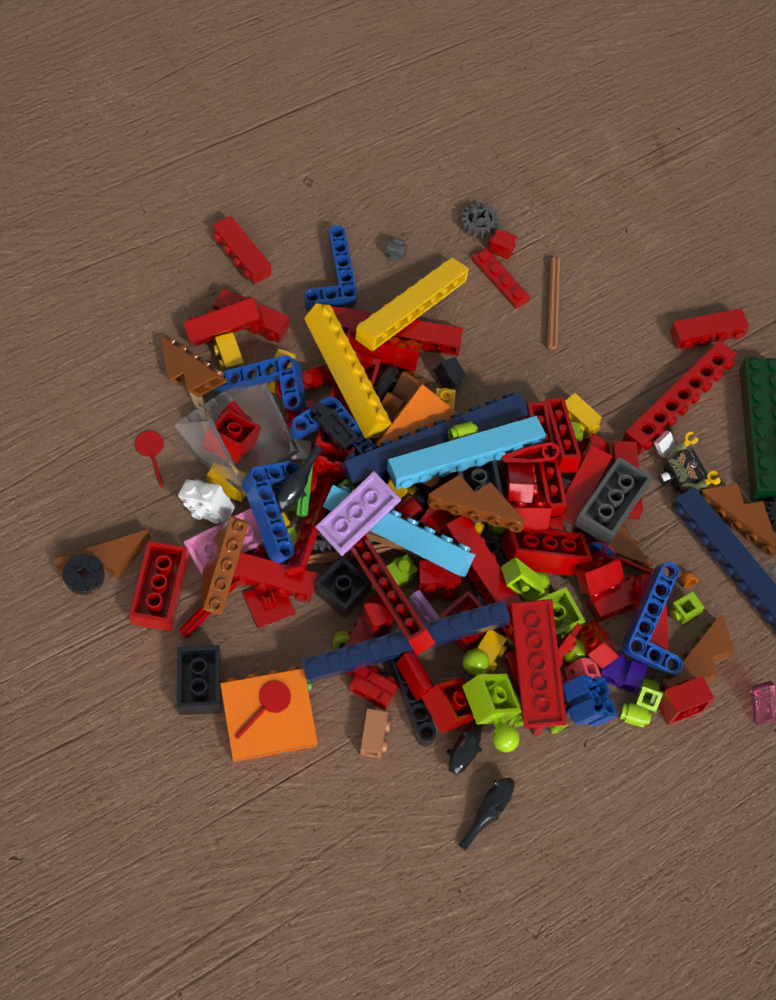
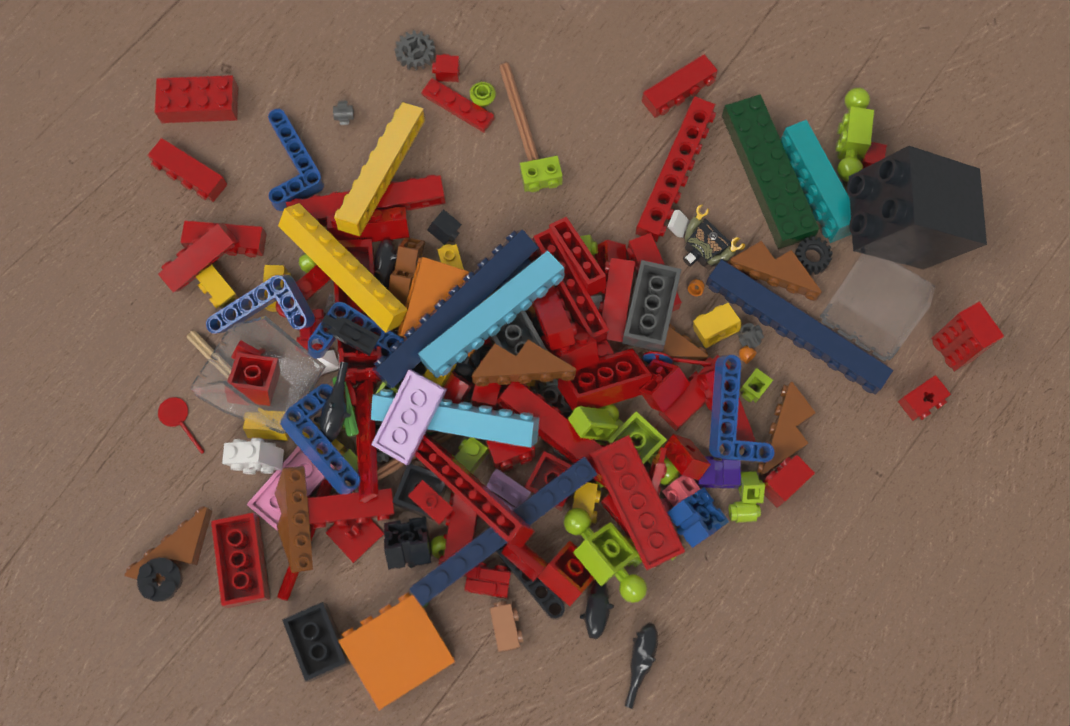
camera: 15 degrees left, 10 degrees up
(188, 369) = (180, 320): dark orange slope -> none
(272, 195) = (196, 99): none -> red brick
(274, 698) = (395, 635): red piece -> none
(313, 625) = (407, 543): none -> black brick
(316, 360) = (306, 263): none -> lime piece
(348, 595) = (431, 502): none -> red plate
(377, 620) = (467, 519): red brick -> none
(462, 430) = (481, 293): lime brick -> none
(526, 275) = (482, 94): none -> lime cone
(533, 454) = (557, 292): red piece -> none
(554, 359) = (541, 174): none -> lime brick
(582, 413) = (588, 223): yellow brick -> none
(658, 502) = (696, 292): none -> orange hinge
(668, 542) = (716, 325): none -> yellow brick
(697, 563) = (750, 335): none -> dark grey gear
(763, 702) = (859, 454): clear pink tile -> none

